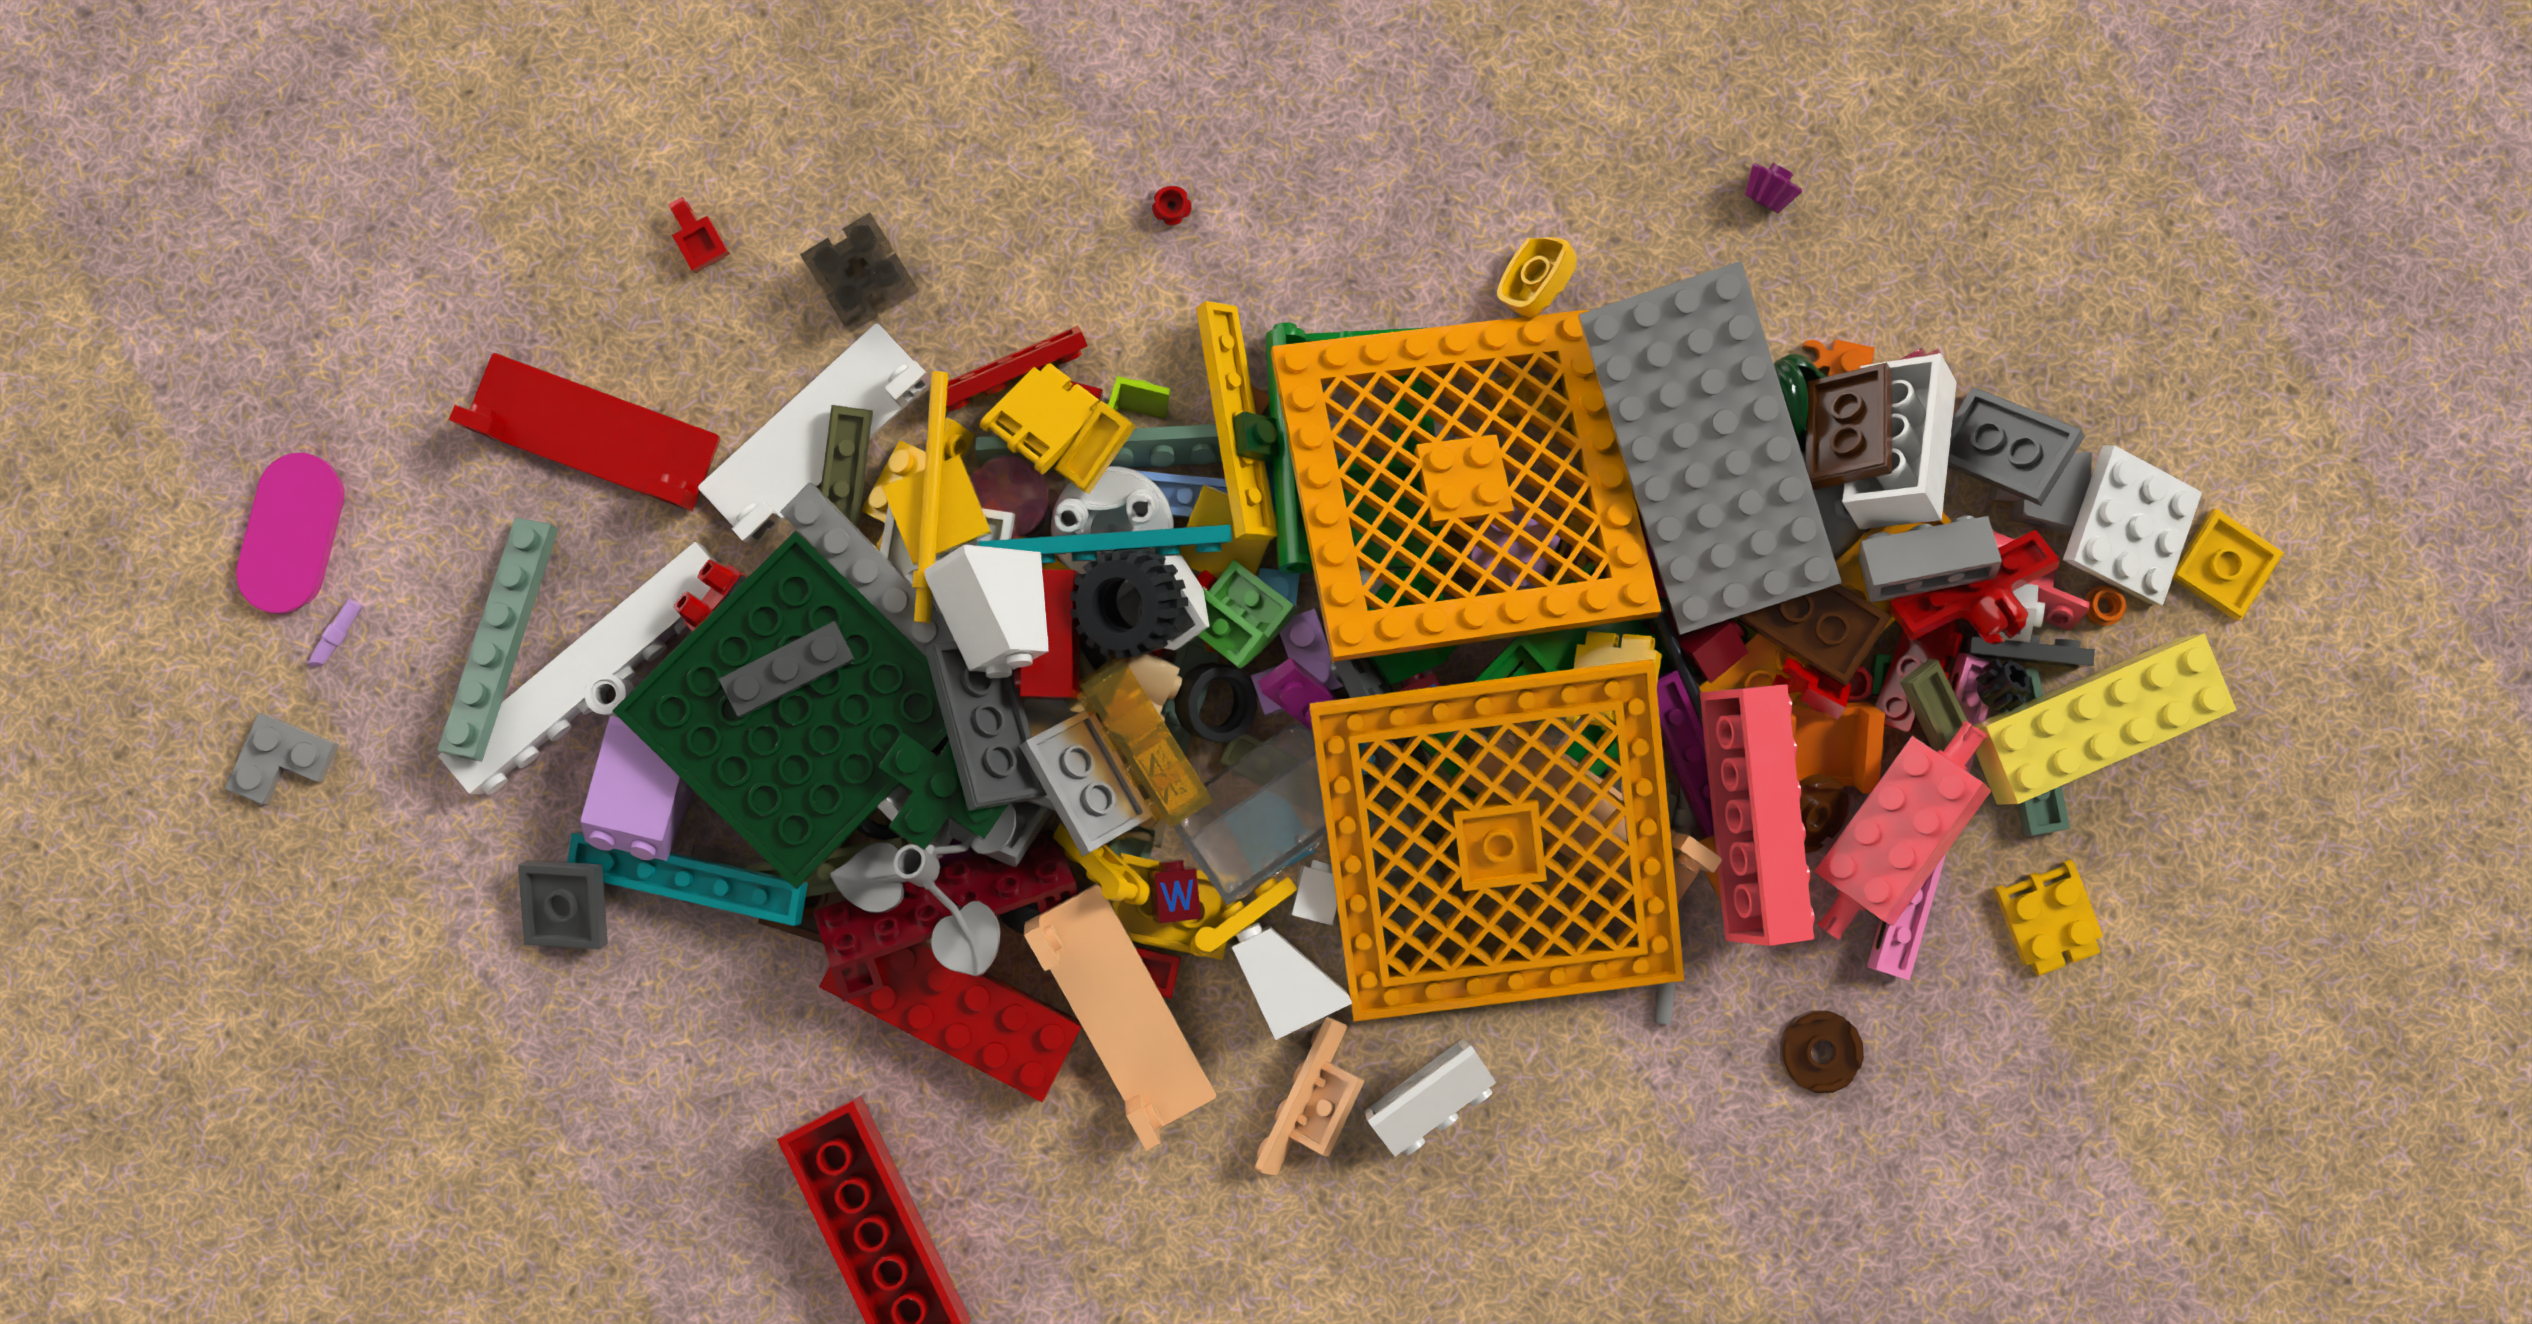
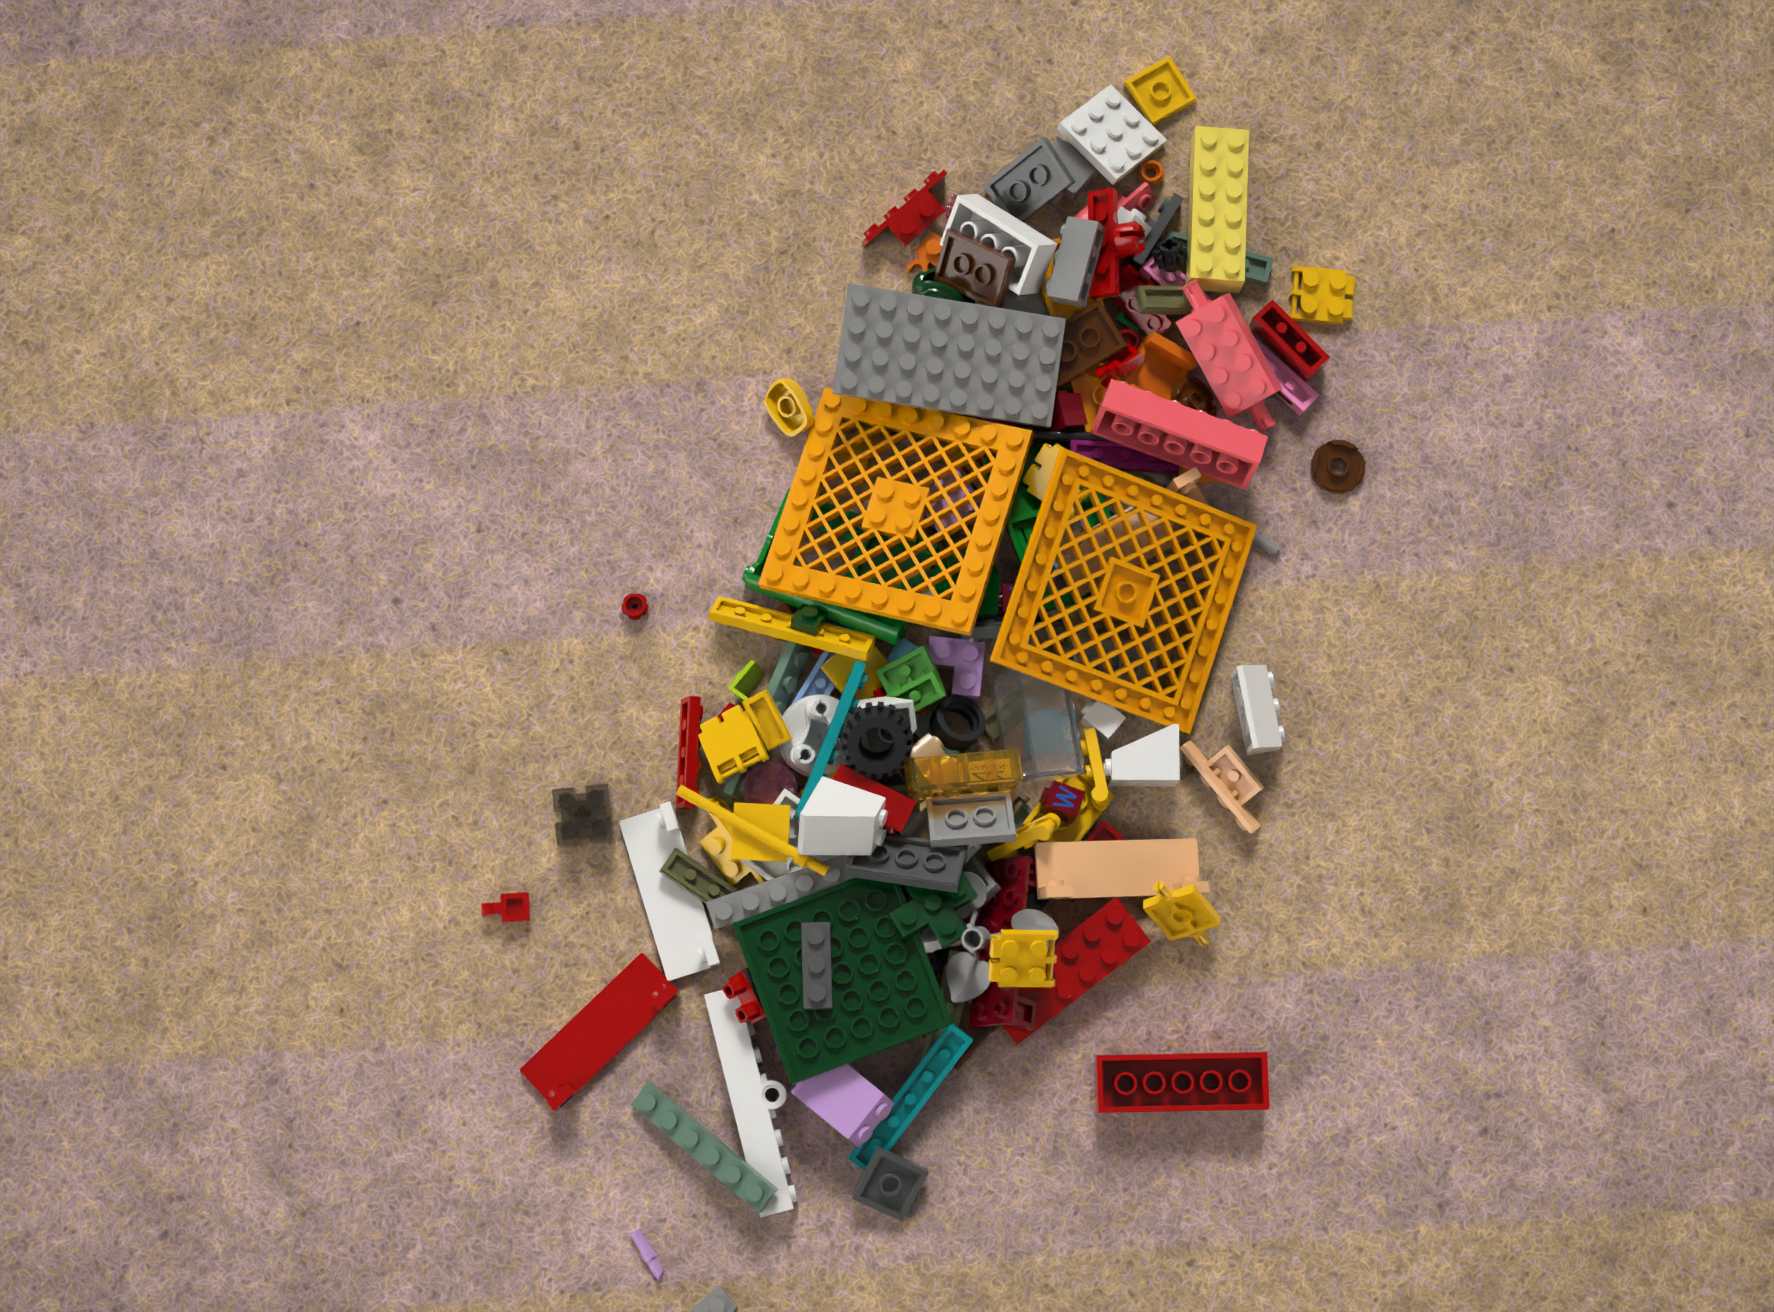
camera: 60 degrees left, 5 degrees down
(290, 533) = (570, 1253): dark pink tile -> none
(921, 942) = (1022, 957): none -> yellow plate
(1100, 1126) = (1181, 912): none -> yellow plate
(1294, 689) = (978, 668): magenta plate -> none
(1771, 187) = (804, 243): magenta piece -> none
(1880, 313) = (912, 217): none -> red bracket
(1964, 904) = (1289, 341): none -> red brick

